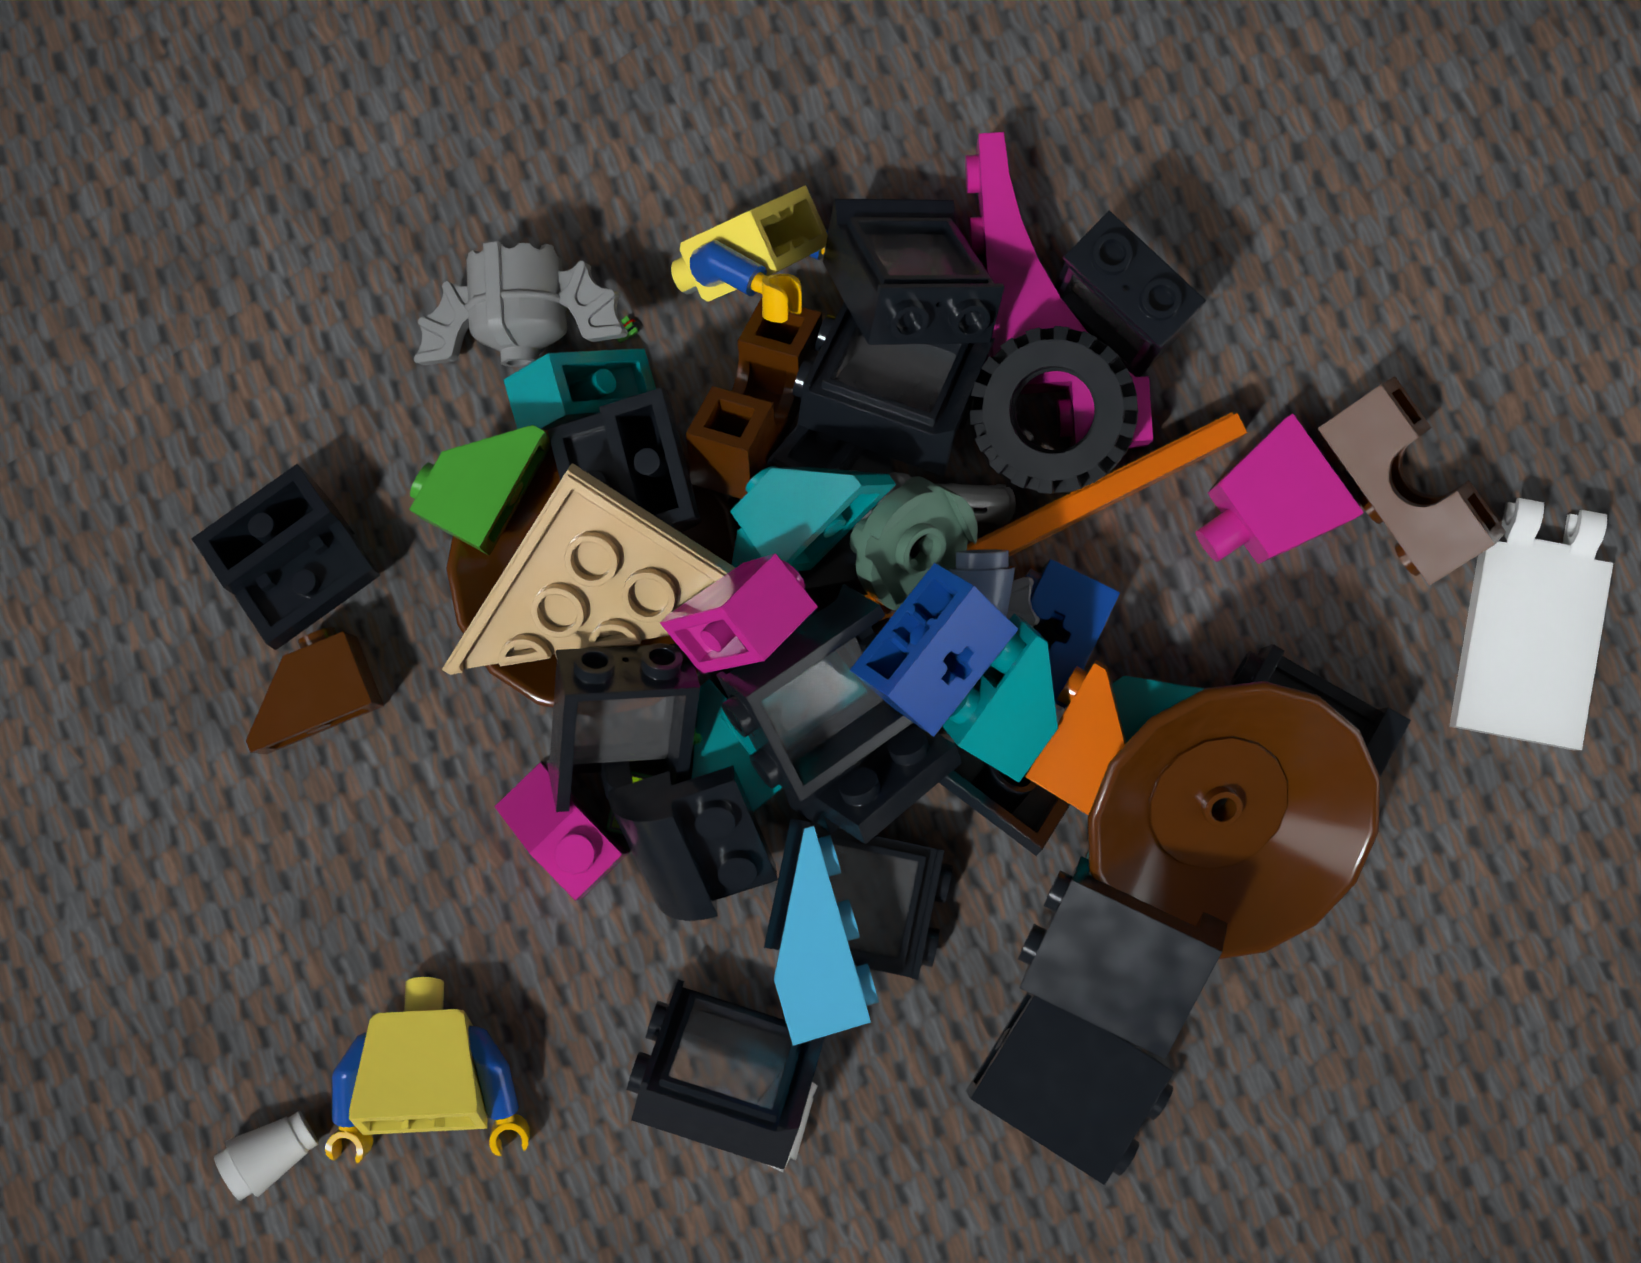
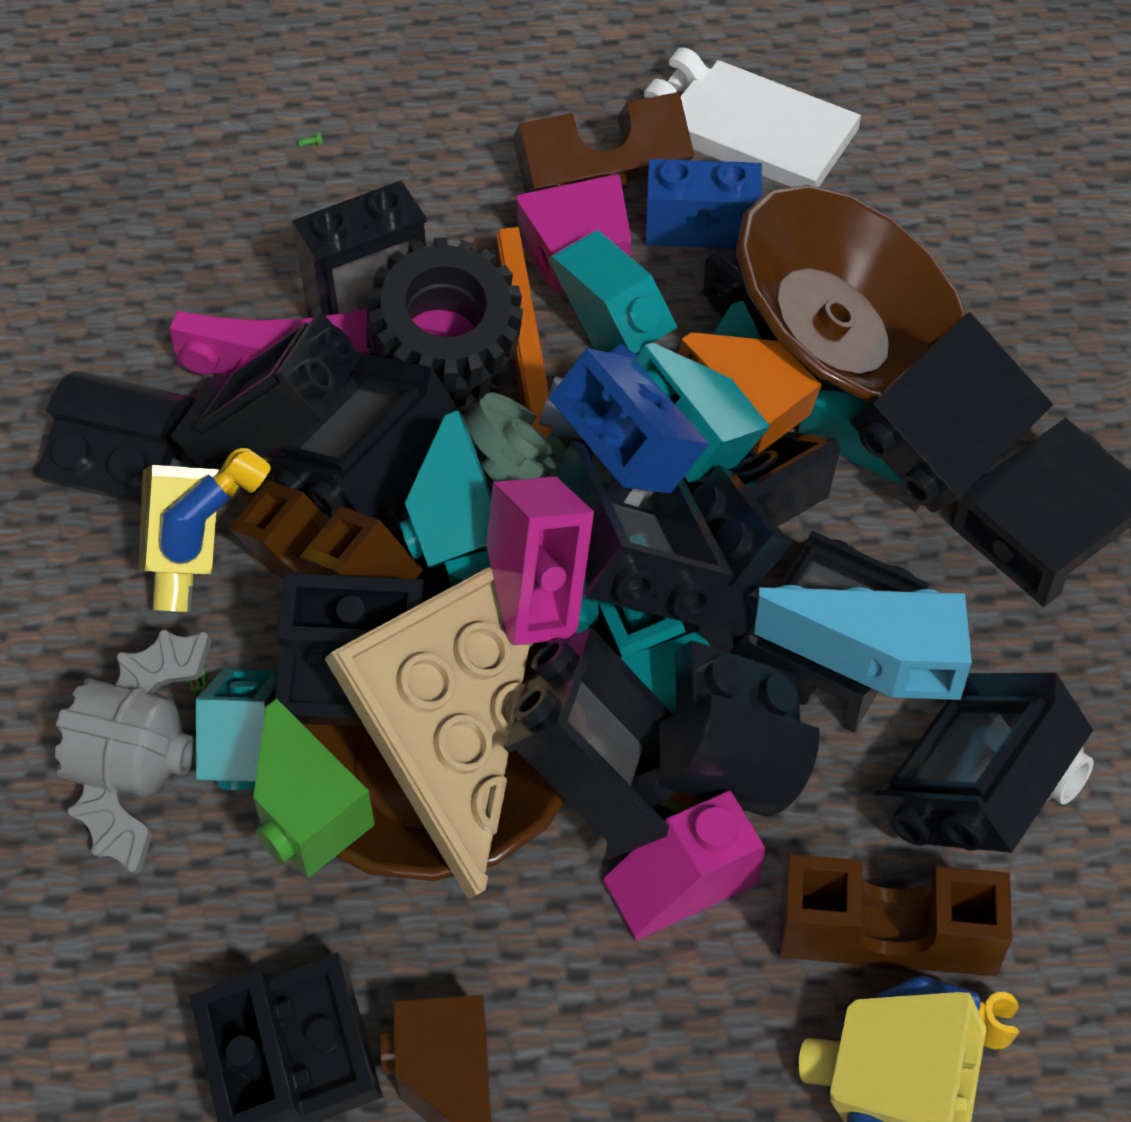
camera: 70 degrees left, 30 degrees down
(568, 1049) = (946, 925): none -> reddish brown arch
(859, 132) = (109, 434): none -> black brick
(1182, 562) = (611, 294): none -> teal slope
(1341, 159) = (312, 140): none -> bright green piece
(1367, 614) = (699, 201): none -> blue brick

